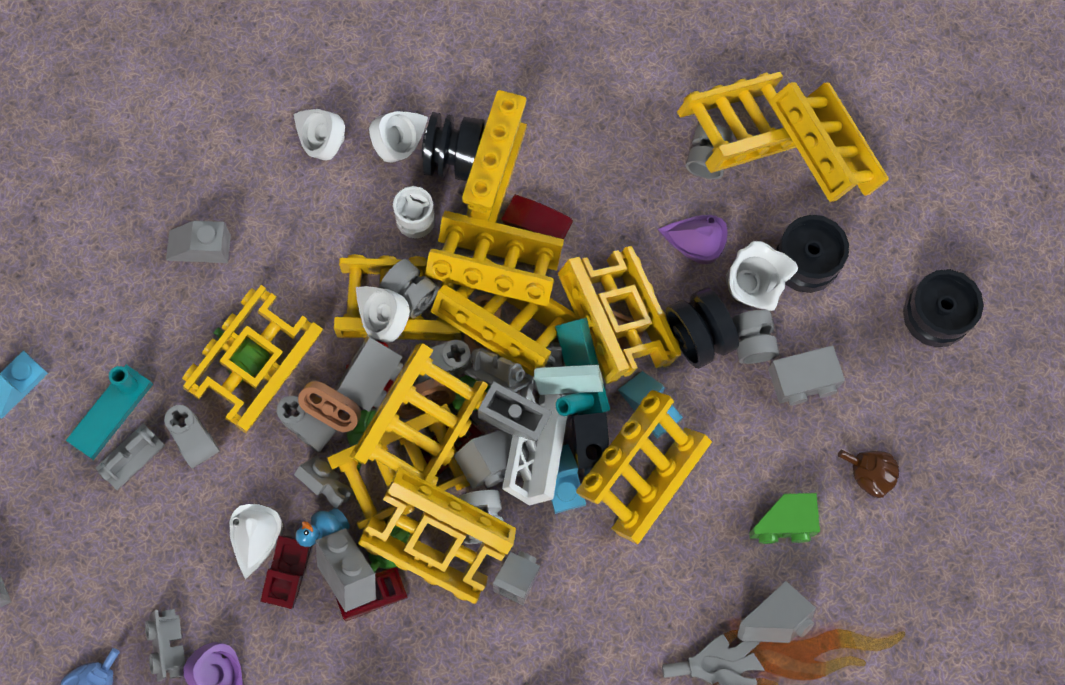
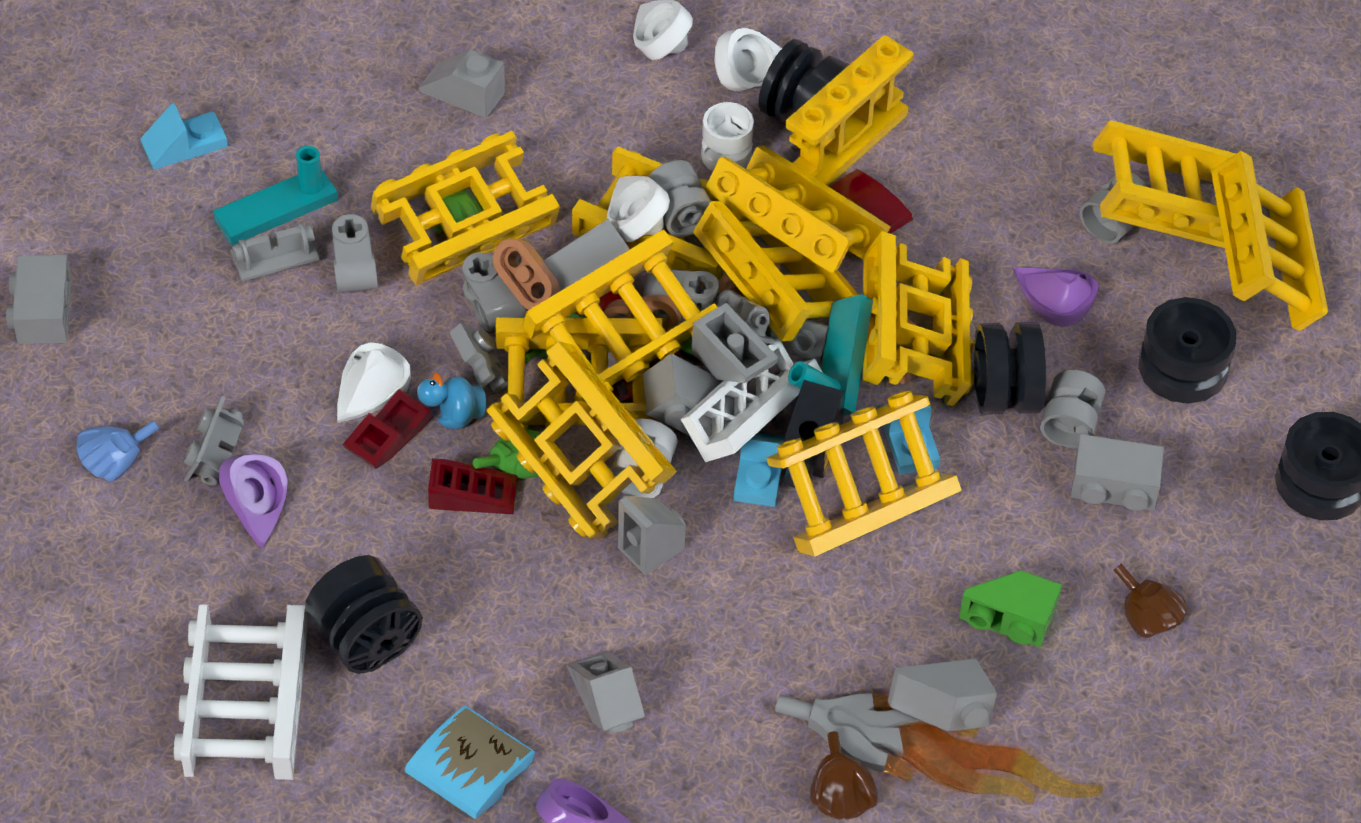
camera: 25 degrees right, 20 degrees down
(345, 570) = (457, 437): light grey brick -> none
(568, 379) = (820, 348): light aqua tile -> none
(759, 275) = (1106, 338): white piece -> none

